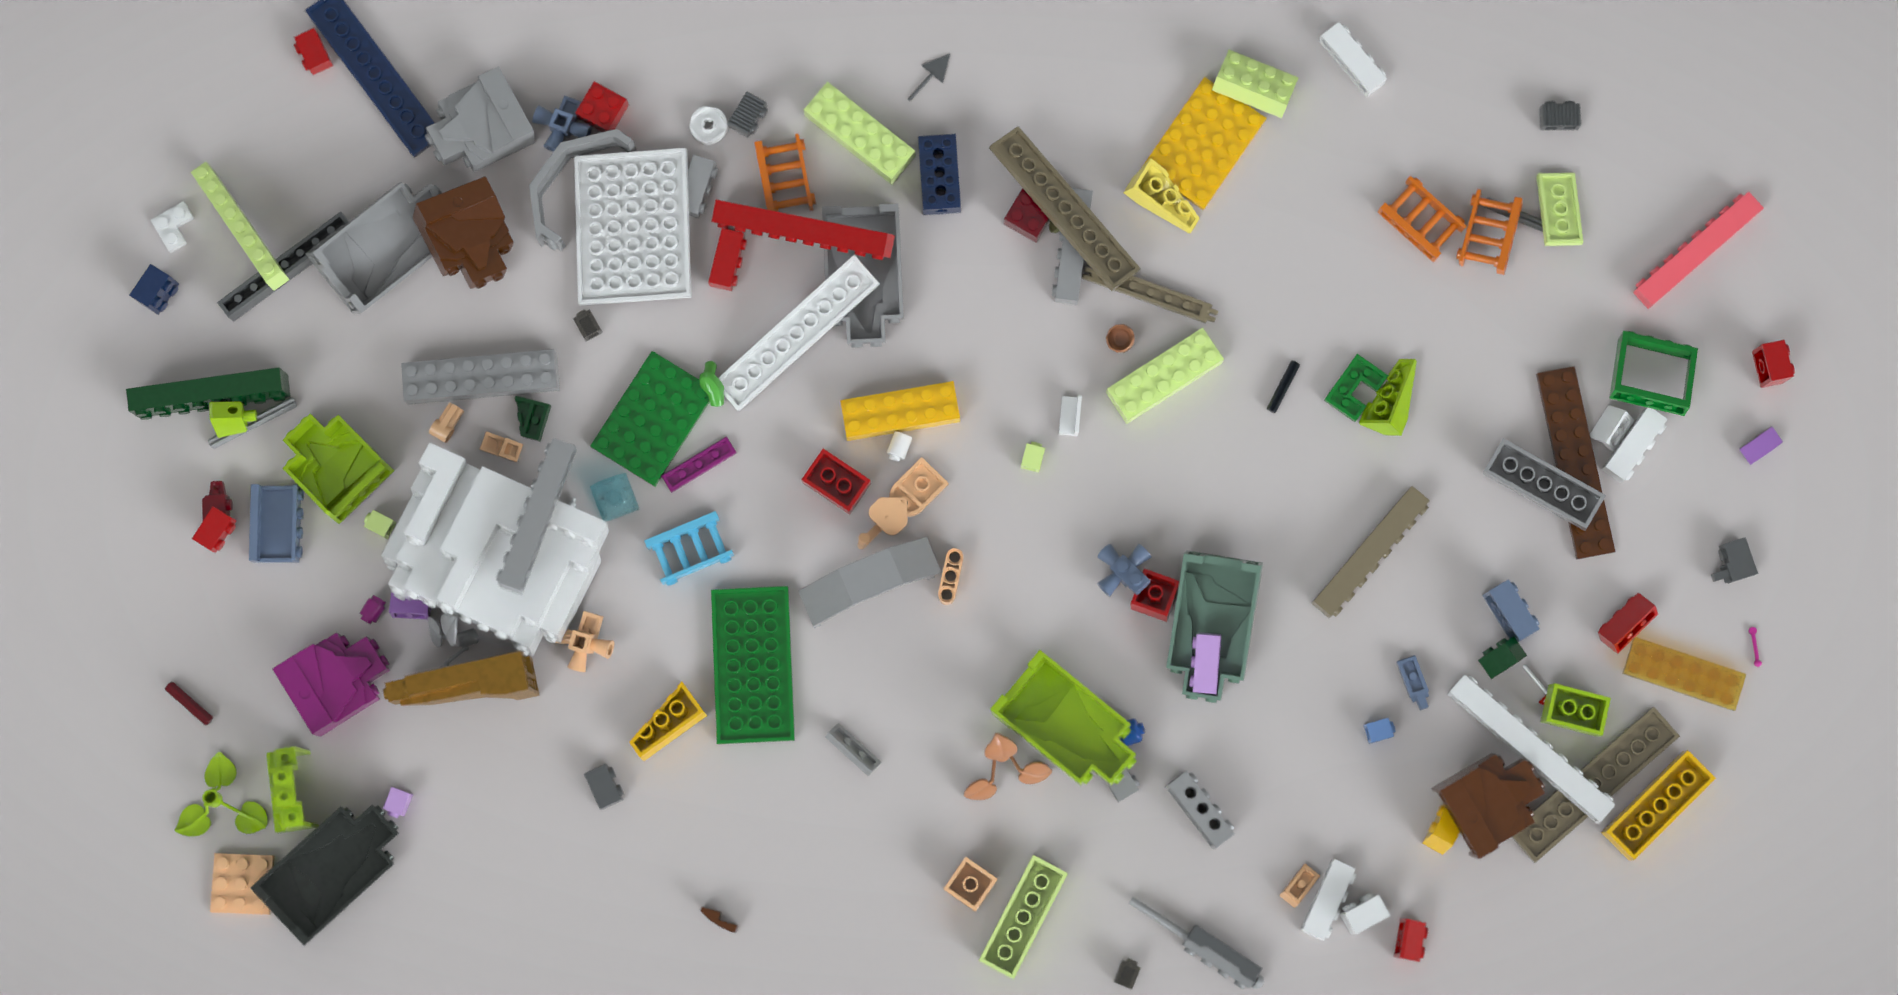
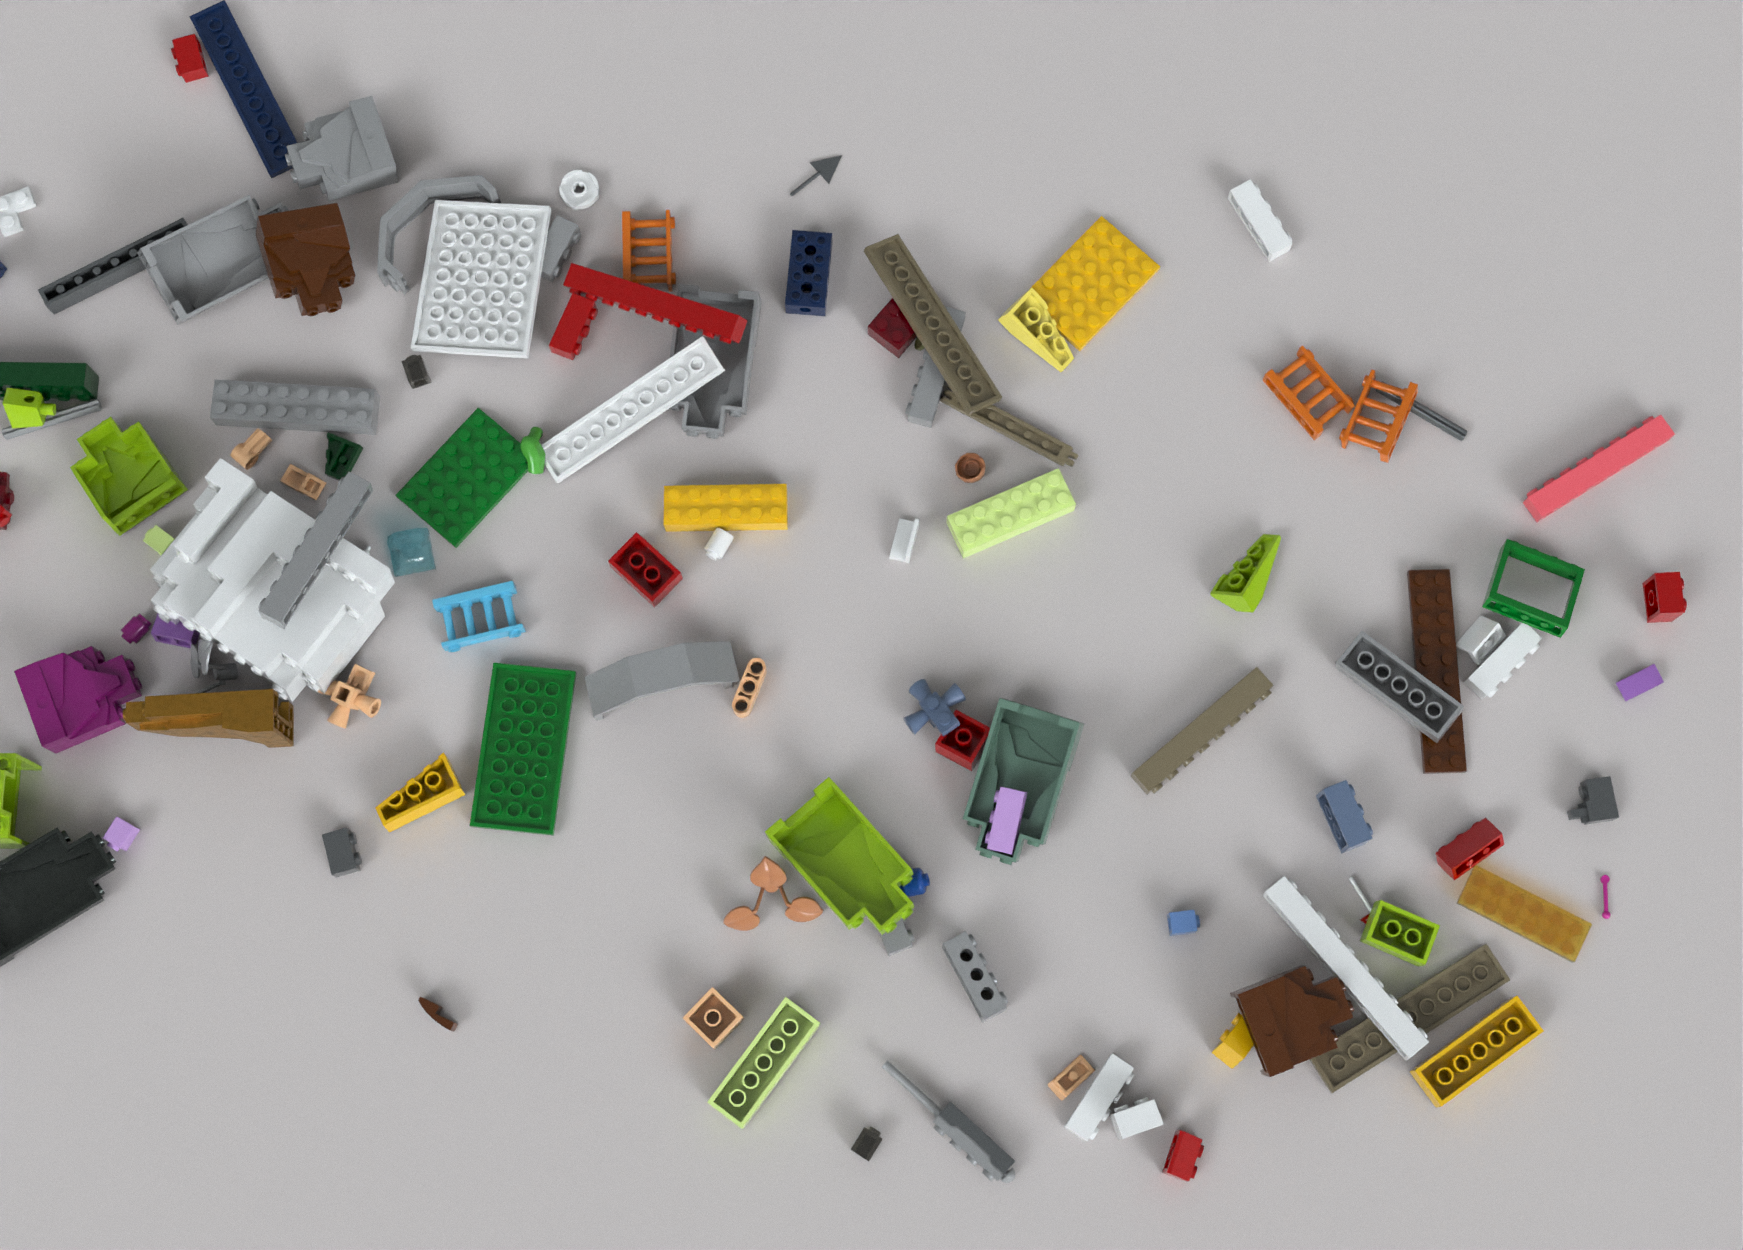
camera: 10 degrees right, 5 degrees down
(240, 226) = (77, 217): yellowish green brick -> none
(275, 524) = (53, 525): sand blue panel -> none
(561, 122) = (428, 163): sand blue brick -> none
(602, 108) = (472, 155): red brick -> none
(699, 464) = (505, 531): magenta tile -> none
(748, 114) = (621, 184): dark grey brick -> none
(853, 749) = (613, 854): light grey plate -> none
(859, 133) = (733, 219): yellowish green brick -> none
(906, 499) = (727, 590): light nougat plate -> none
(1033, 457) = (857, 576): yellowish green brick -> none
(1255, 83) = (1153, 229): yellowish green brick -> none
(1283, 386) = (1135, 544): black axle -> none
(1357, 371) = (1195, 560): green plate -> none
(1414, 681) = (1228, 875): sand blue hinge -> none
(1502, 657) = (1328, 863): dark green brick -> none
(1559, 209) = (1456, 404): yellowish green tile -> none
(1560, 116) = (1470, 309): dark grey brick -> none

